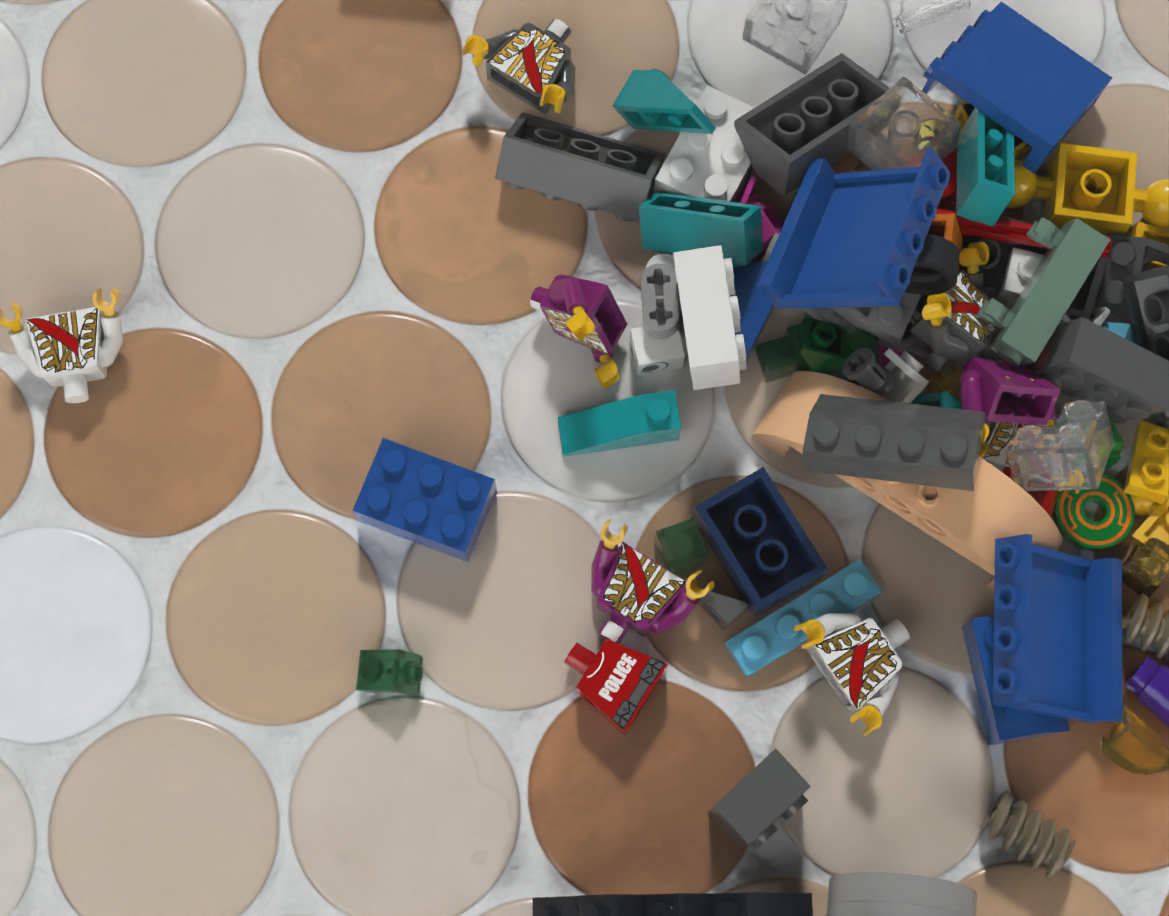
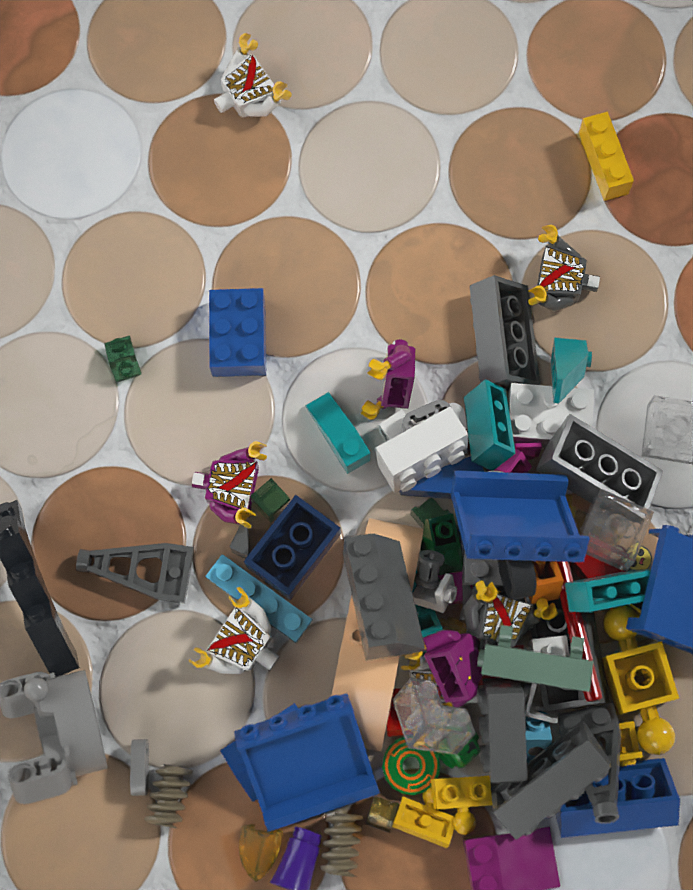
camera: 70 degrees right, 0 degrees up
(615, 680) = (168, 495): red torso -> none
(729, 717) = (173, 576): none -> dark grey plate
(759, 799) = (124, 610): dark grey brick -> none
(974, 861) = (139, 767): none -> light grey beam

